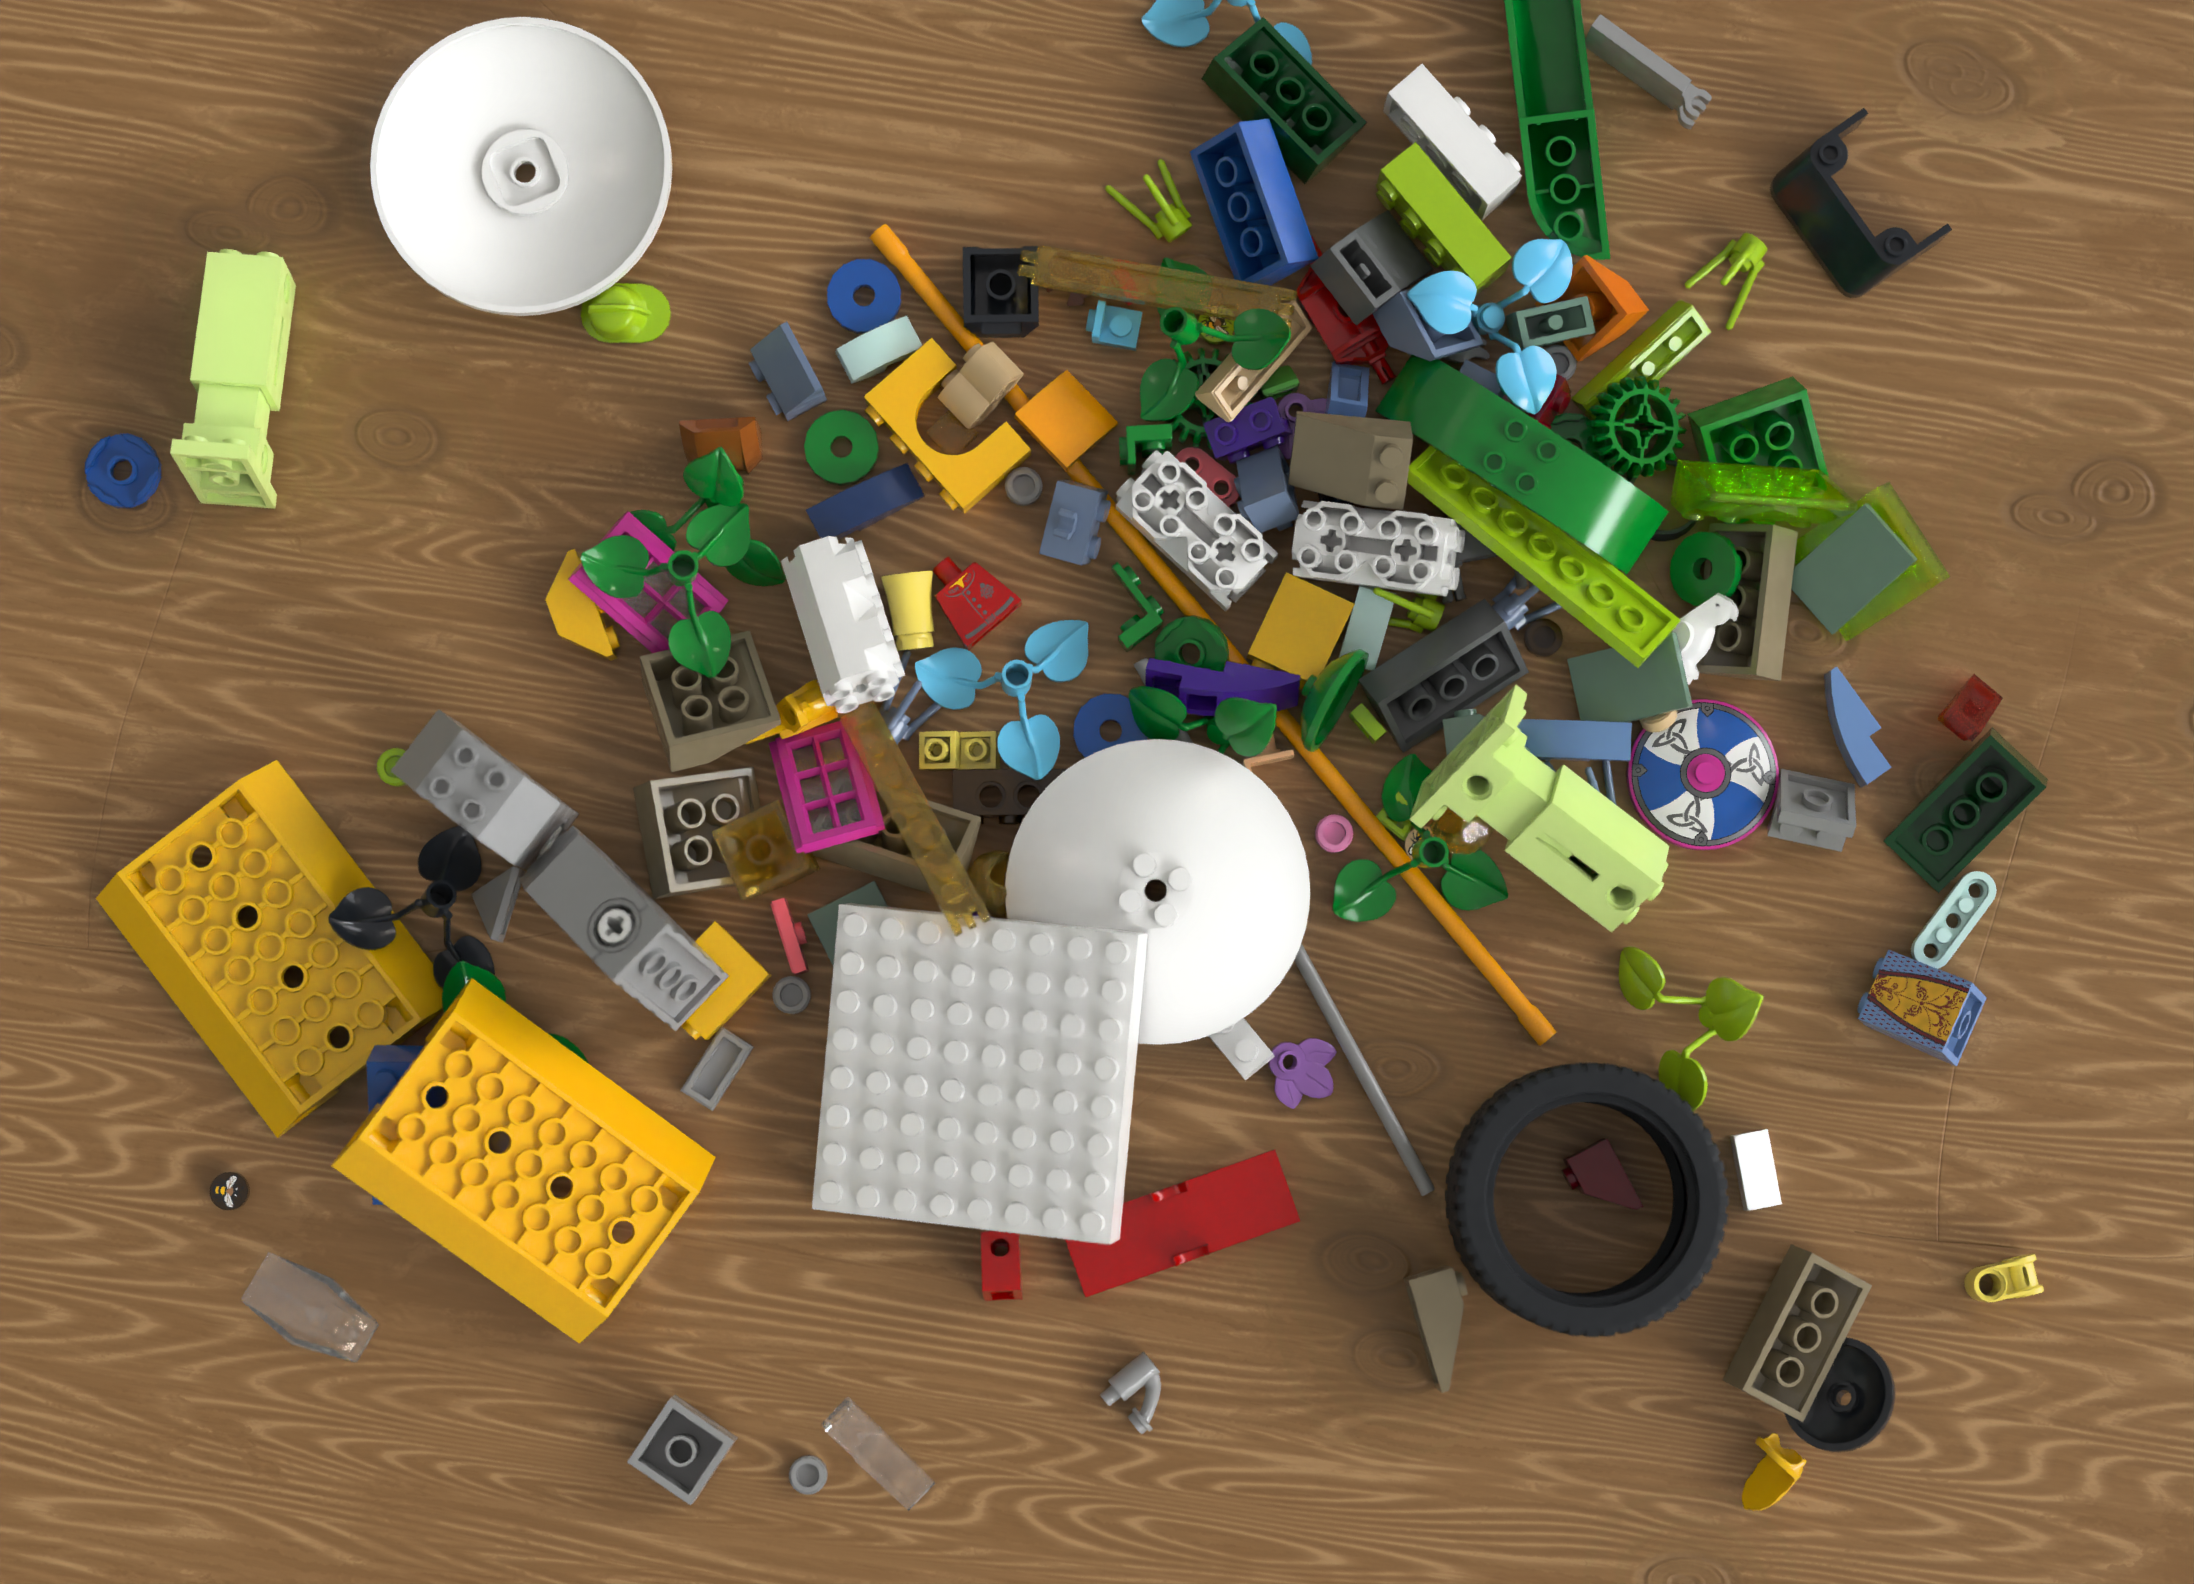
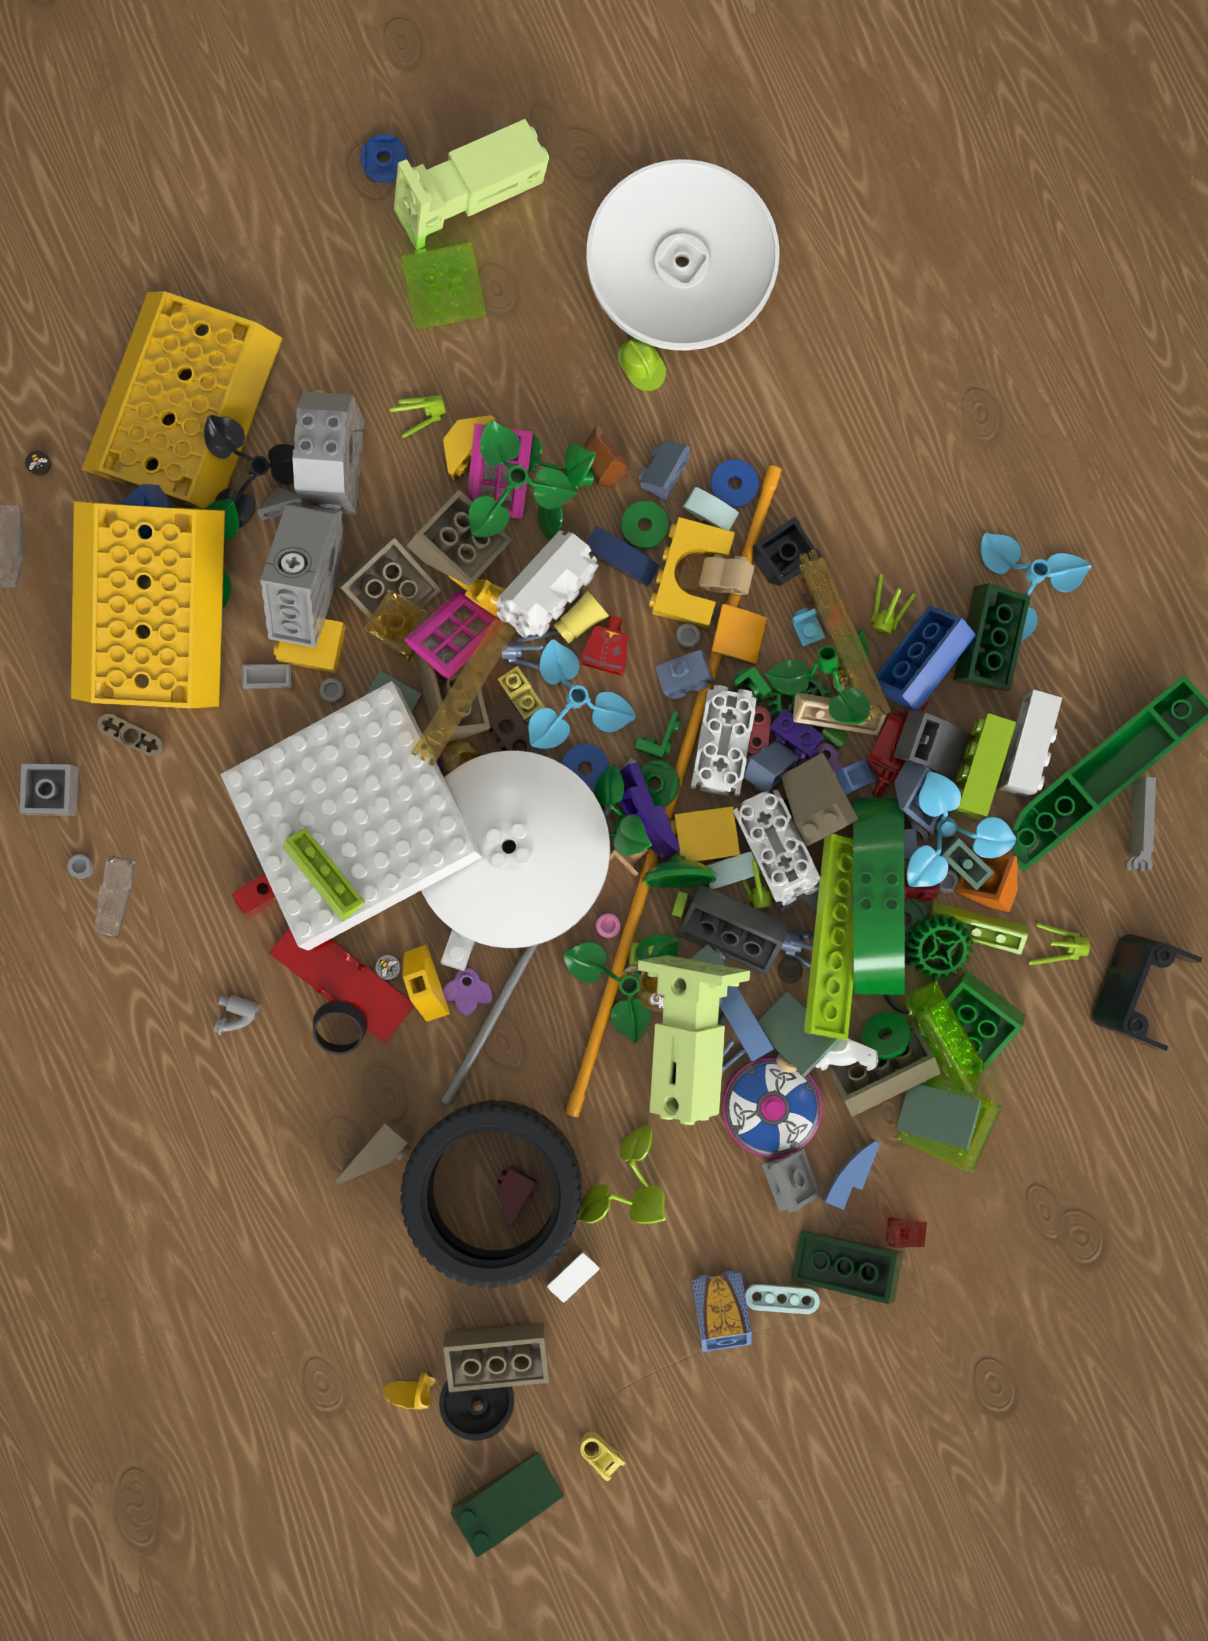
camera: 60 degrees right, 0 degrees up
(347, 501) = (443, 284): none -> clear neon green slope
(499, 622) = (432, 405): none -> lime plant
(648, 1302) = (140, 734): none -> dark tan beam
(792, 936) = (362, 669): coral plate -> none
(1038, 1151) = (323, 874): none -> lime slope
(1203, 1153) = (388, 967): none -> tile
(1217, 1250) = (342, 1008): none -> black tyre
(1256, 1119) = (424, 984): none -> yellow slope
(1990, 1441) = (506, 1504): none -> dark green slope

